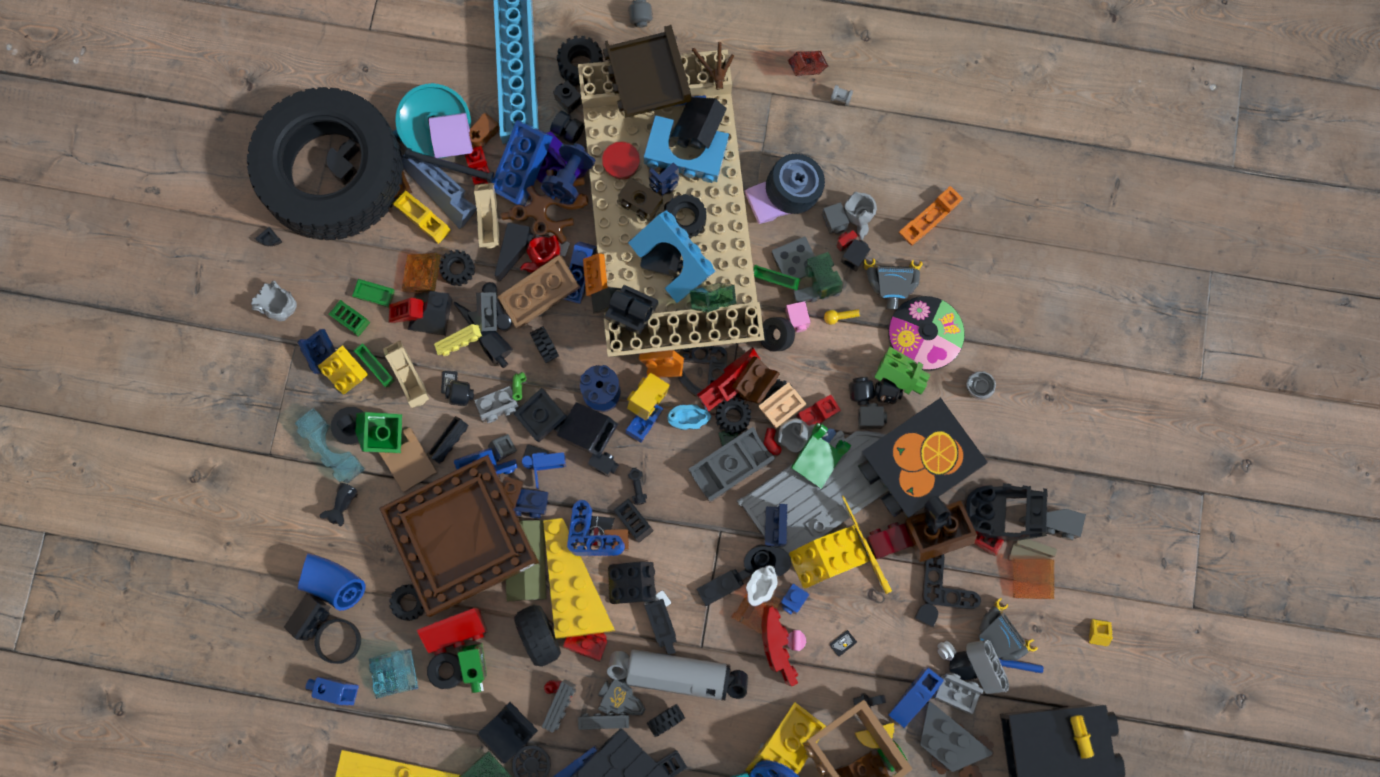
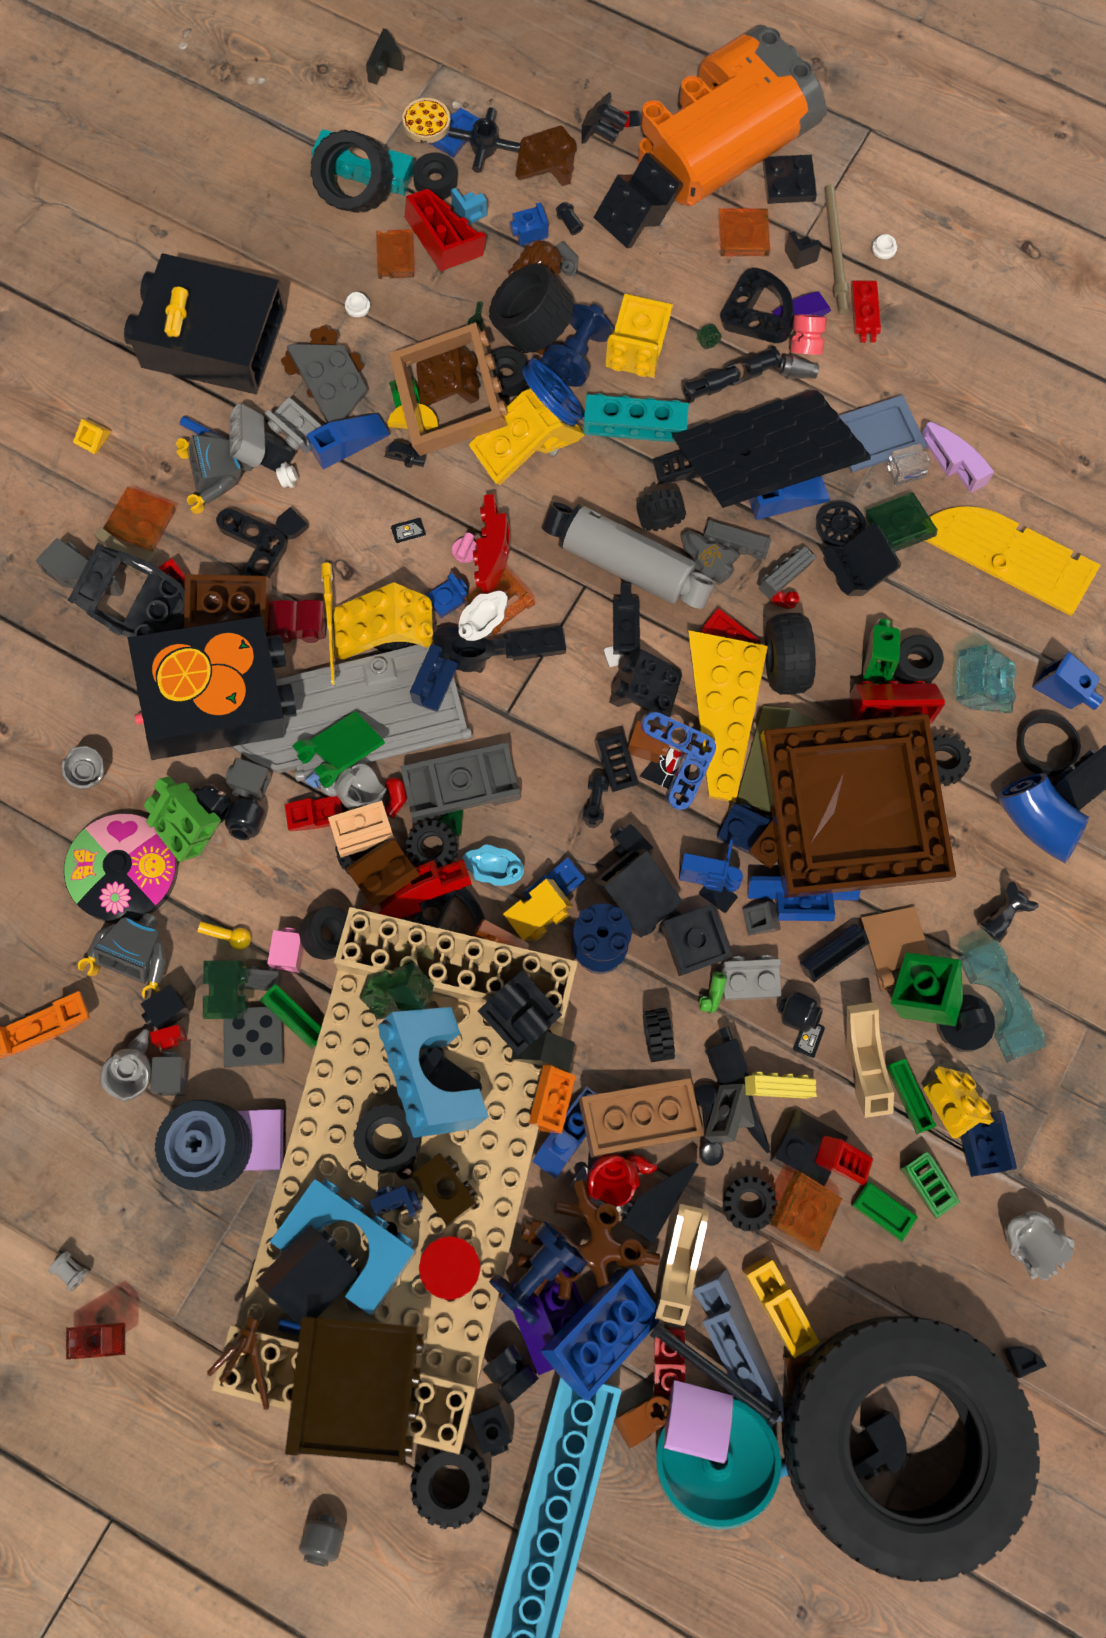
camera: 160 degrees left, 5 degrees down
(936, 514) = (224, 607): black piece -> none

